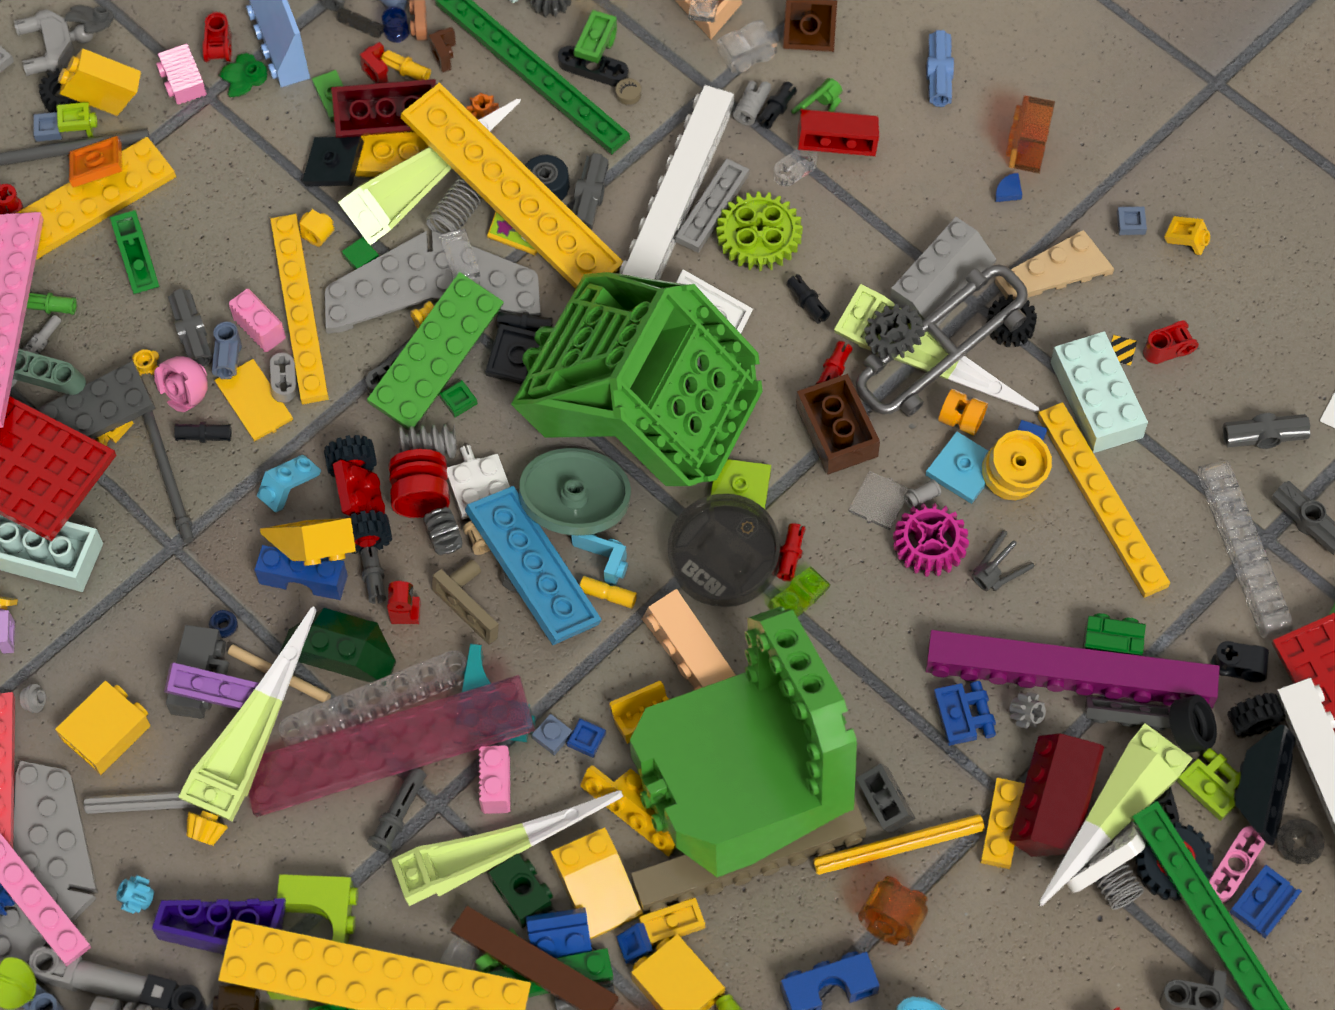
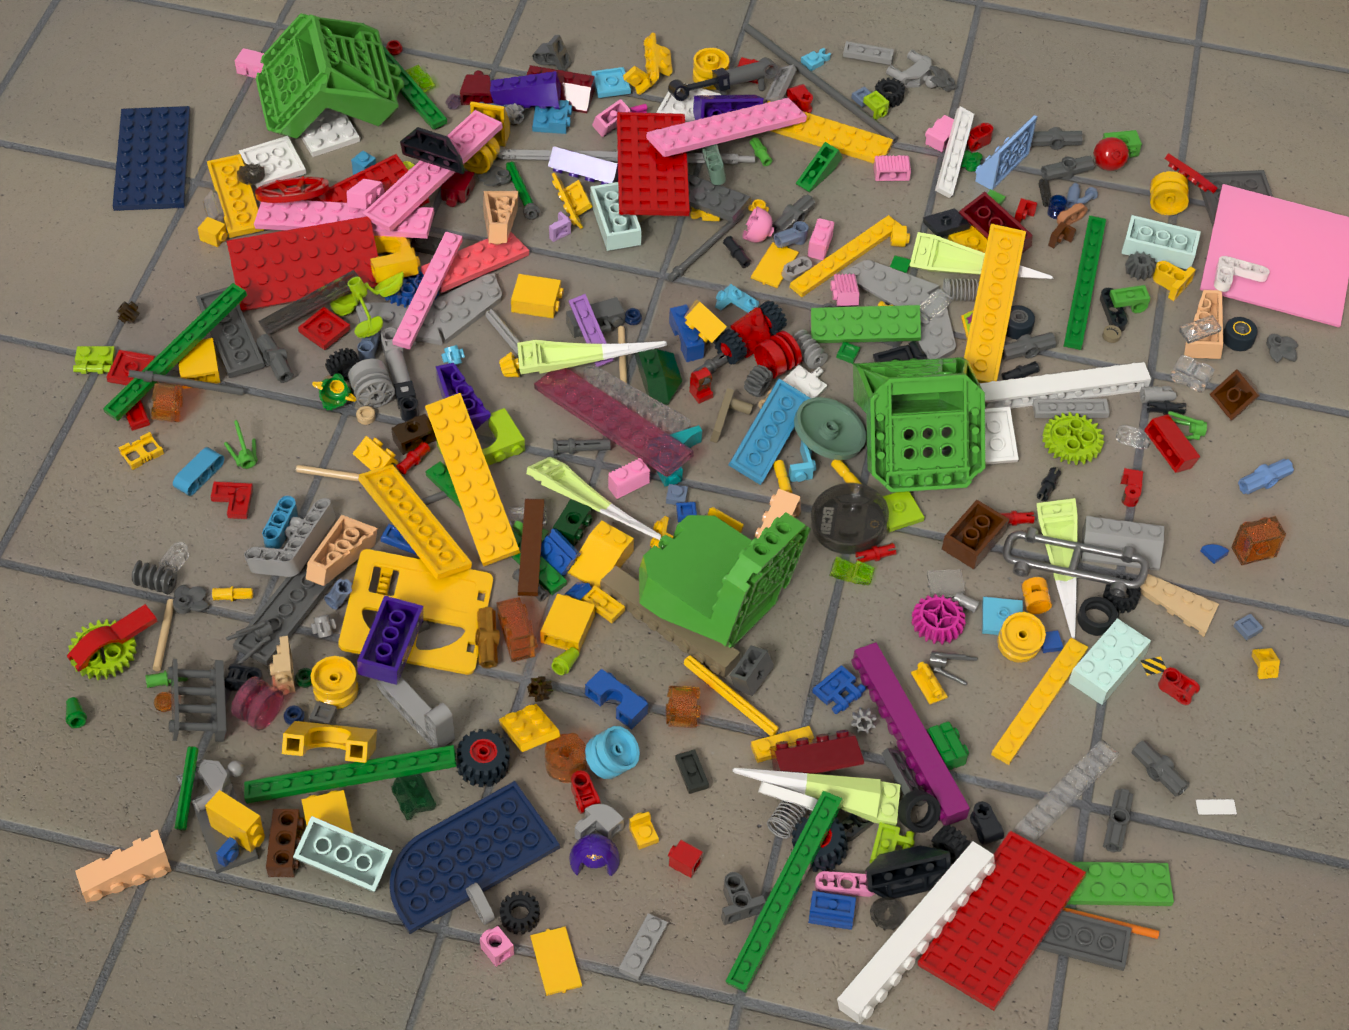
camera: 55 degrees right, 10 degrees down
(32, 698) = (528, 257): light grey plate -> none
(95, 161) = (857, 124): orange tile -> none
(99, 82) = (902, 96): yellow brick -> none
(196, 167) = (892, 168): none -> bright pink brick
(229, 80) = (954, 152): none -> white plate
(363, 341) = (845, 290): none -> bright pink brick
(406, 66) = (1035, 226): yellow axle -> none
(482, 105) = (1041, 267): orange gear -> none
(622, 225) = (1021, 371): none -> black pin
(654, 514) = (844, 472): none -> yellow piece
(869, 213) = (1133, 487): none -> red leg
(894, 331) = (1056, 529): dark grey gear -> none
(986, 954) = (692, 771): none -> pearl dark grey plate
(1013, 606) = (928, 683): none -> yellow hinge
(1034, 349) = (1100, 604): none -> black tyre

